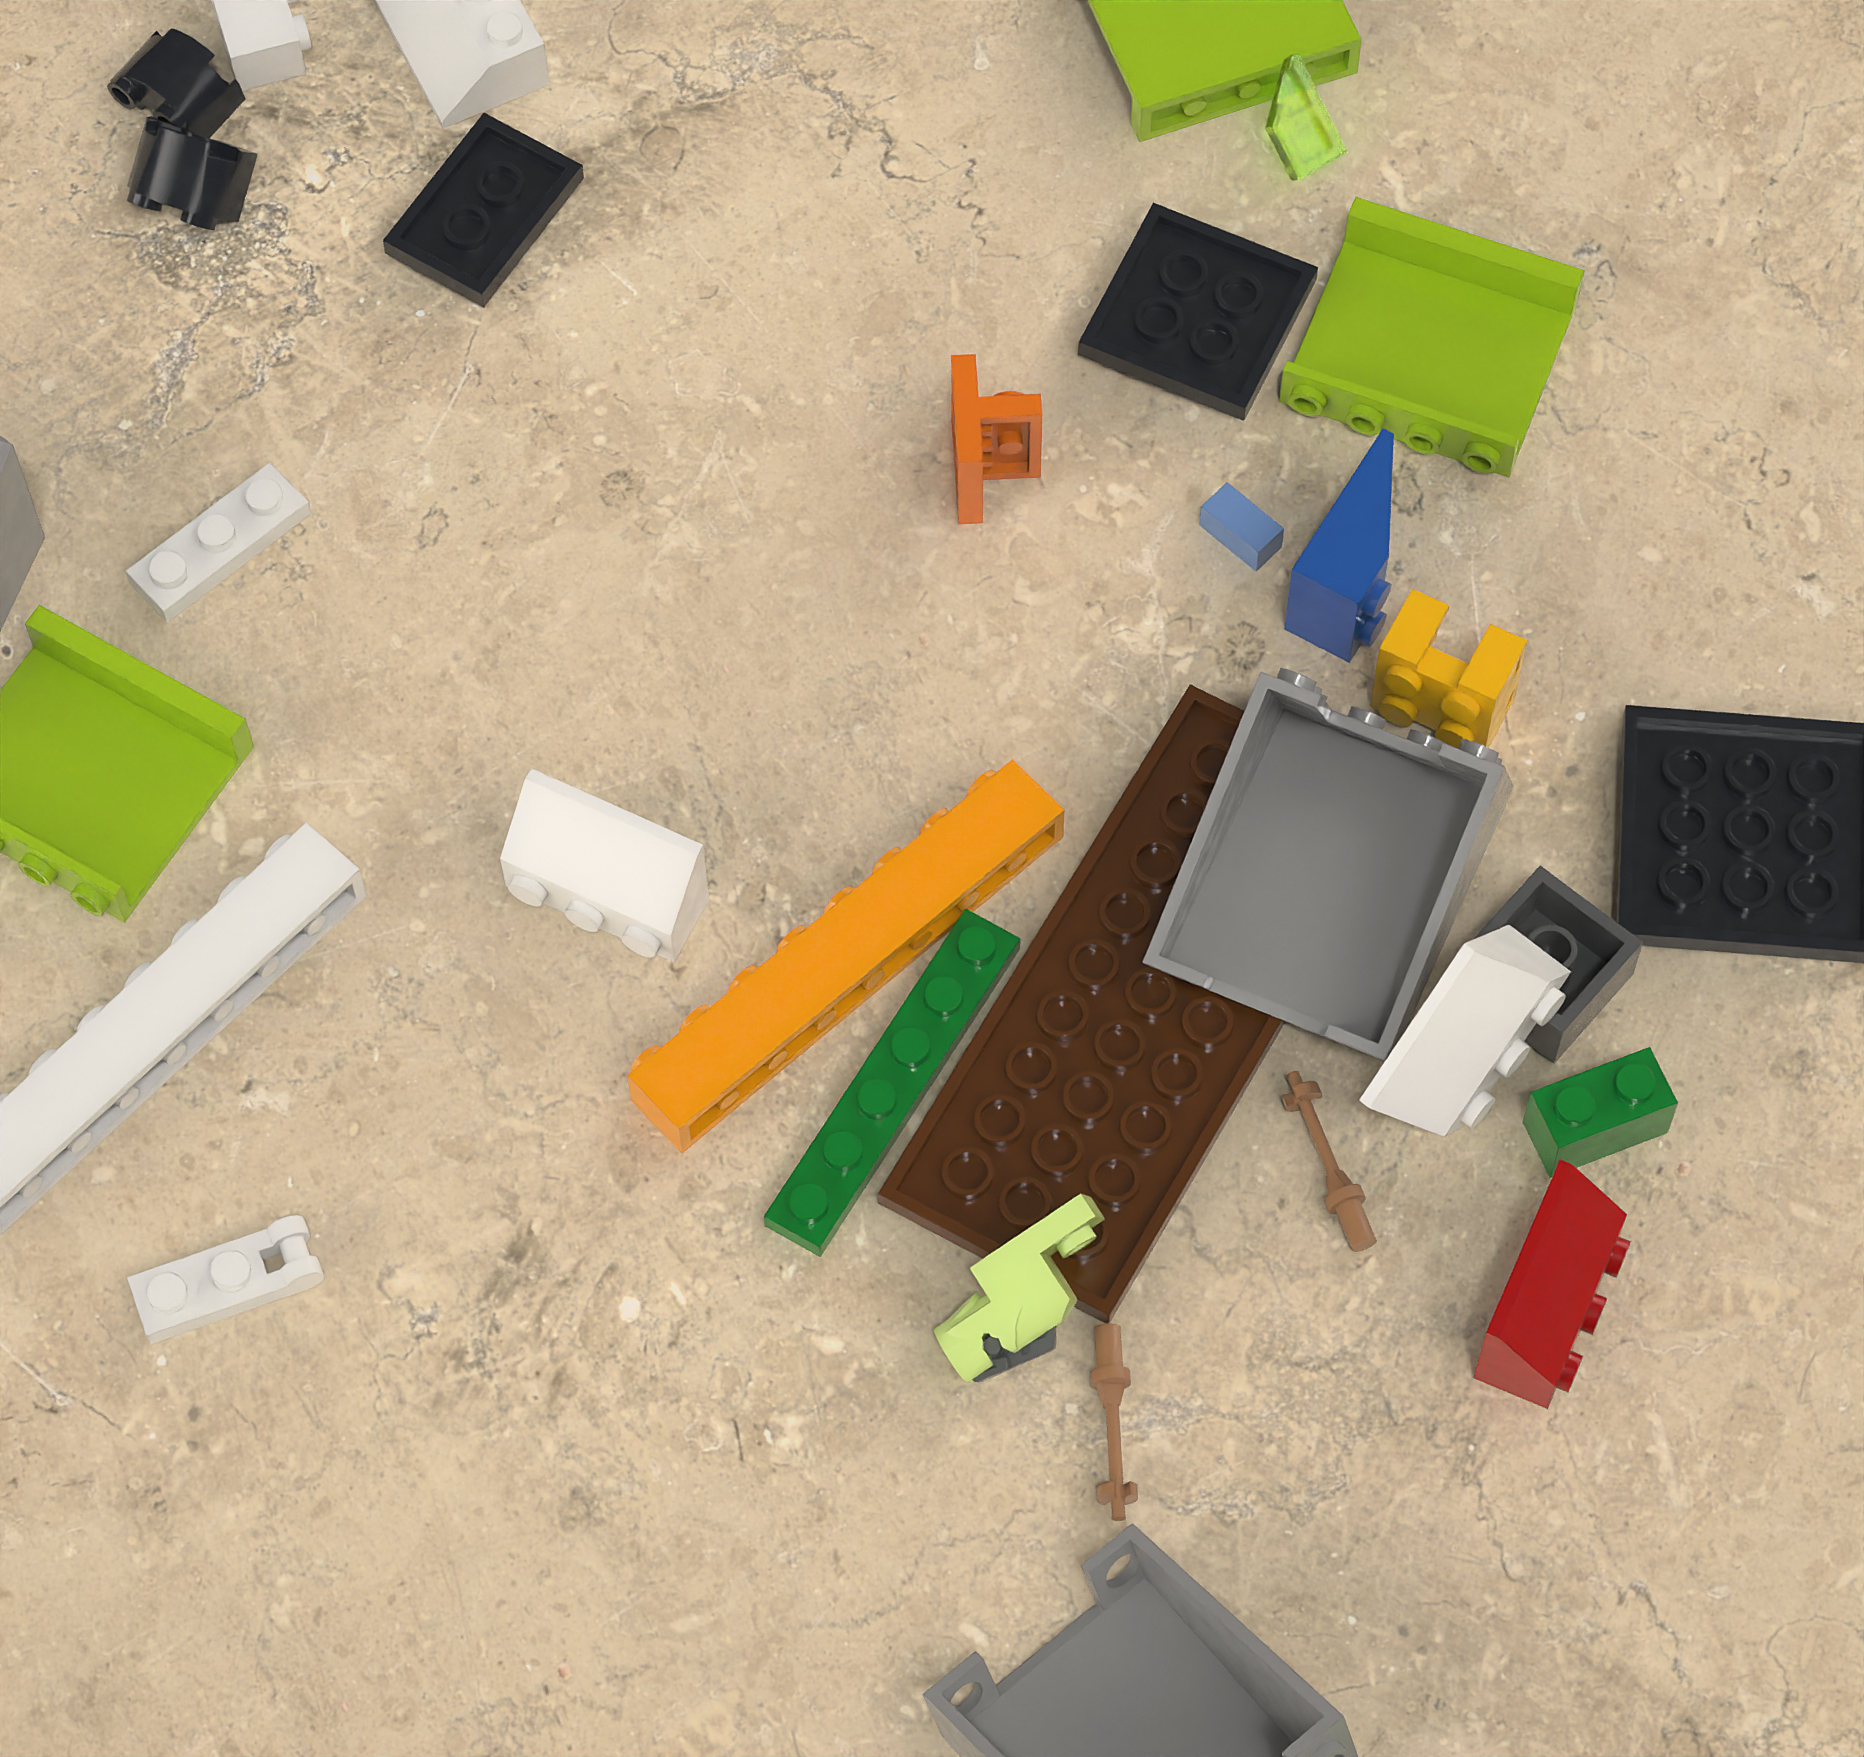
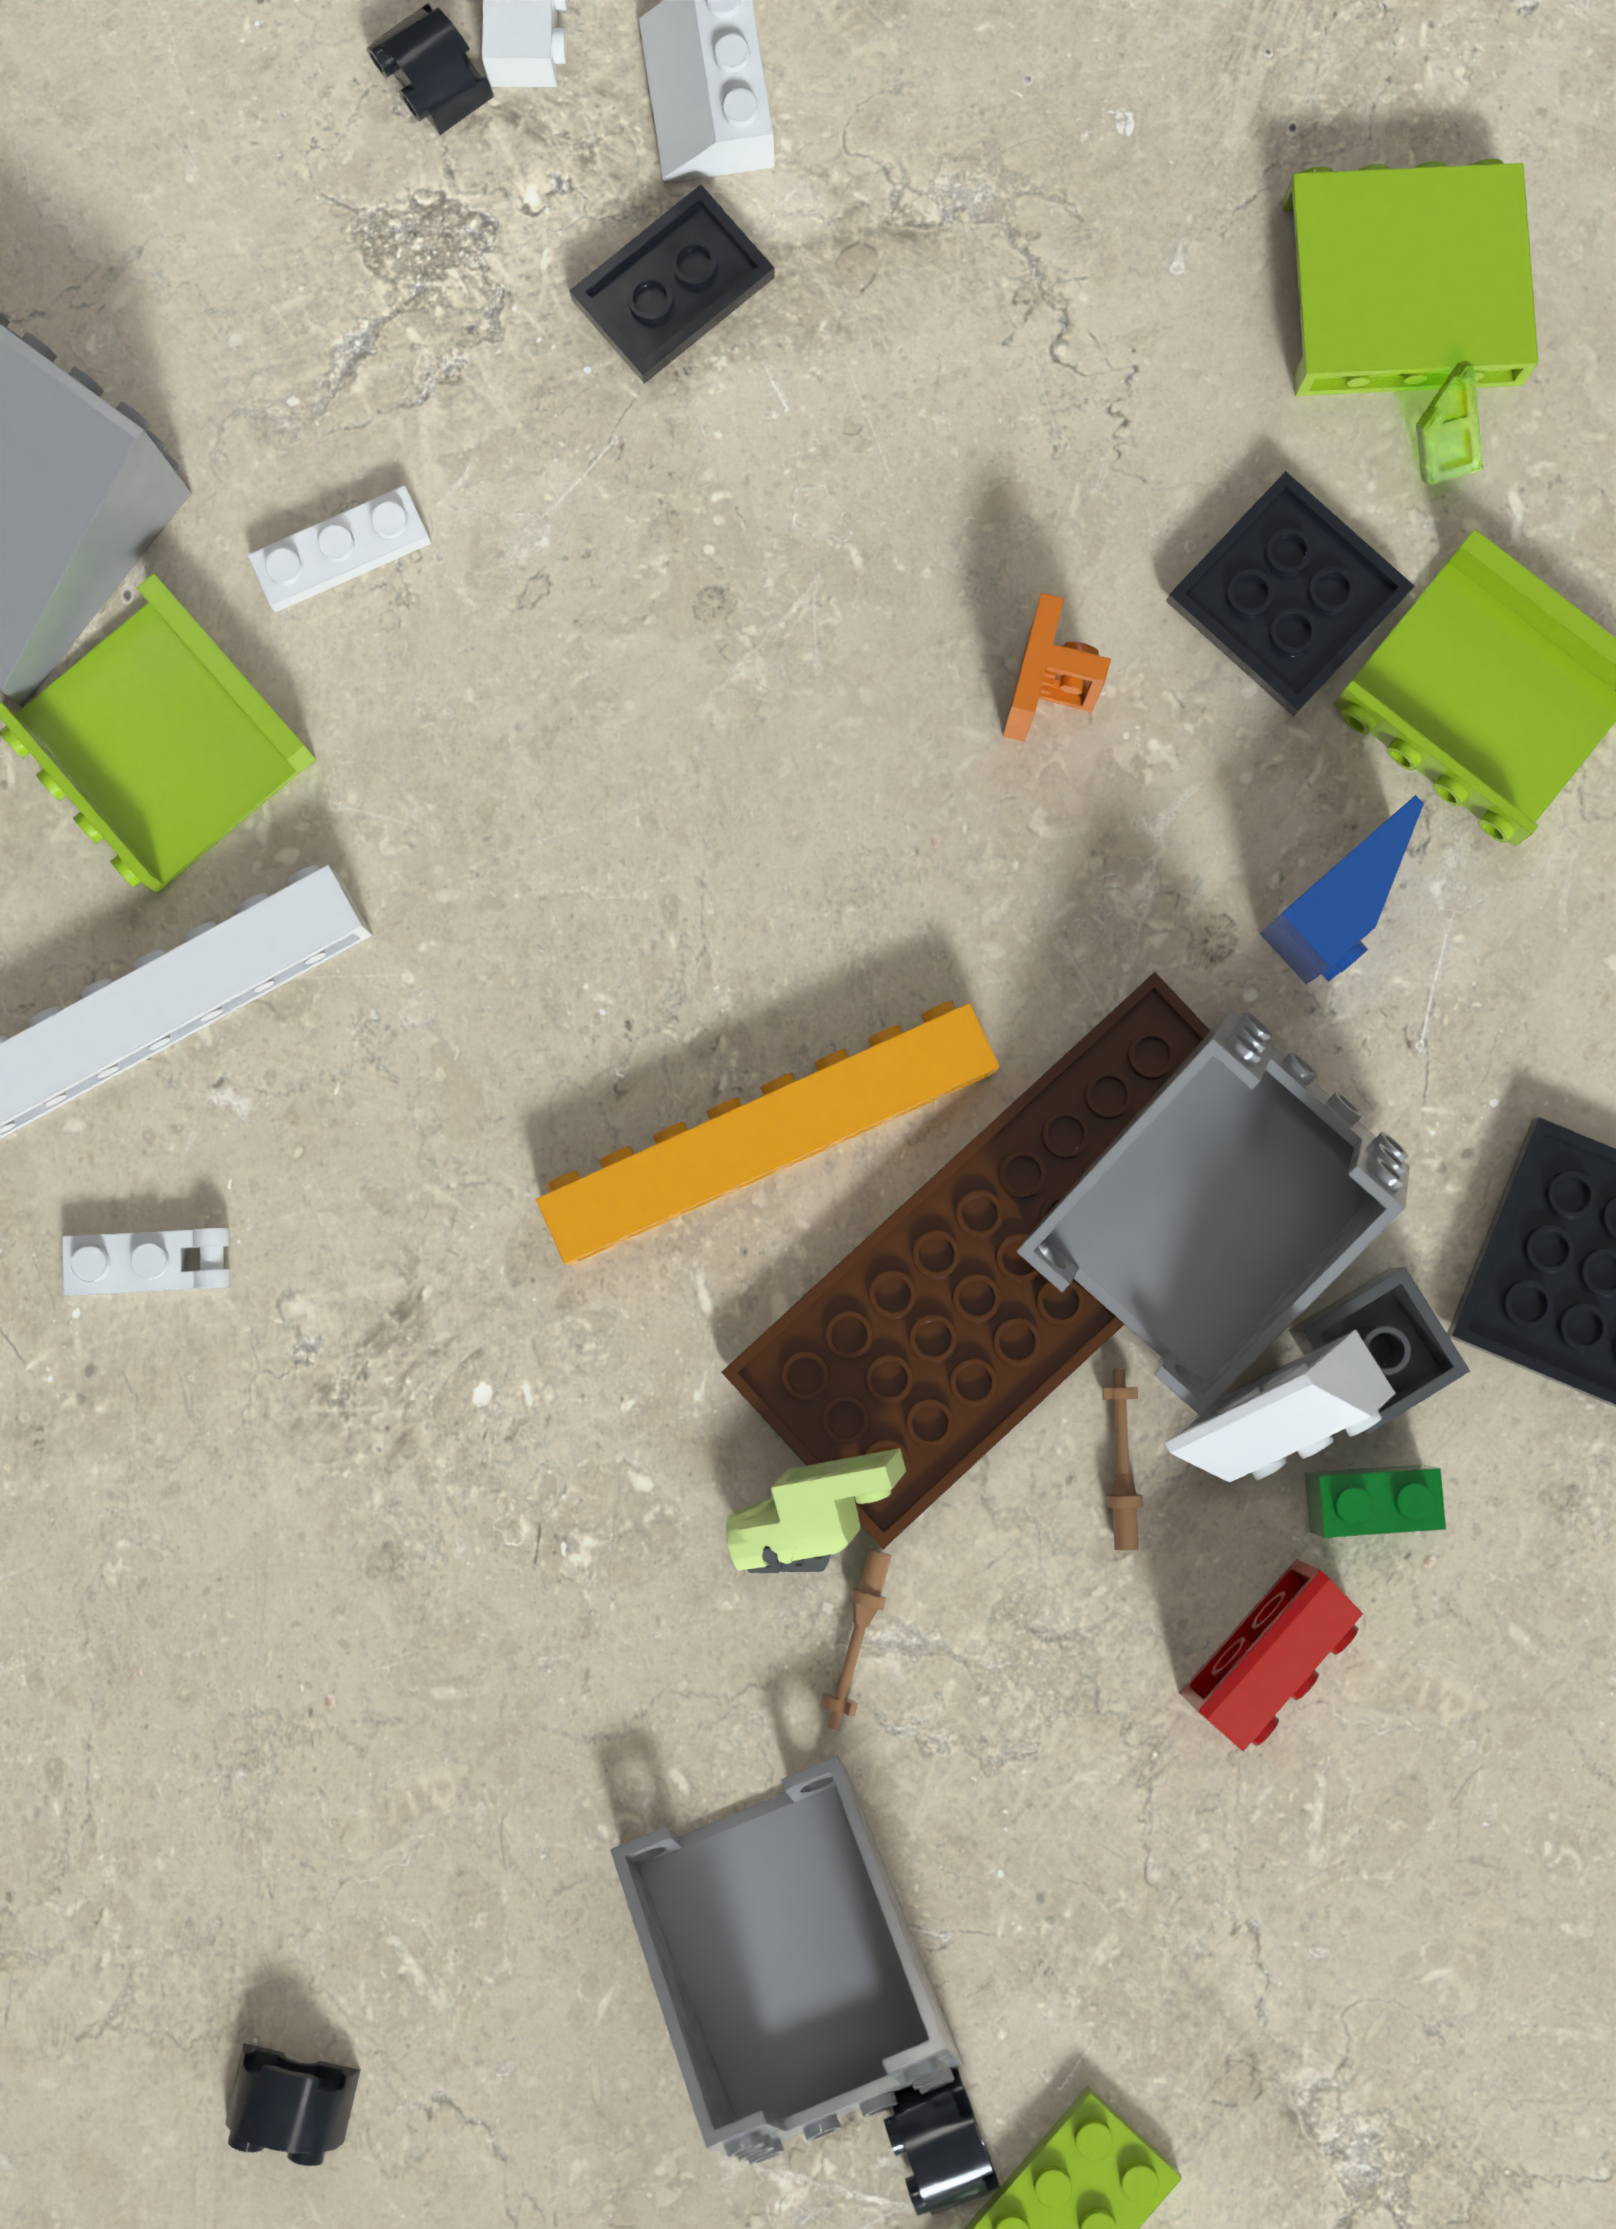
camera: 20 degrees right, 20 degrees up
(190, 174) = (414, 166): black cylinder -> none
(604, 867) = (574, 992): white slope -> none
(892, 1083) = (771, 1261): green plate -> none
(1241, 526) = (1255, 824): medium blue piece -> none
(1439, 689) = (1390, 1075): yellow piece -> none

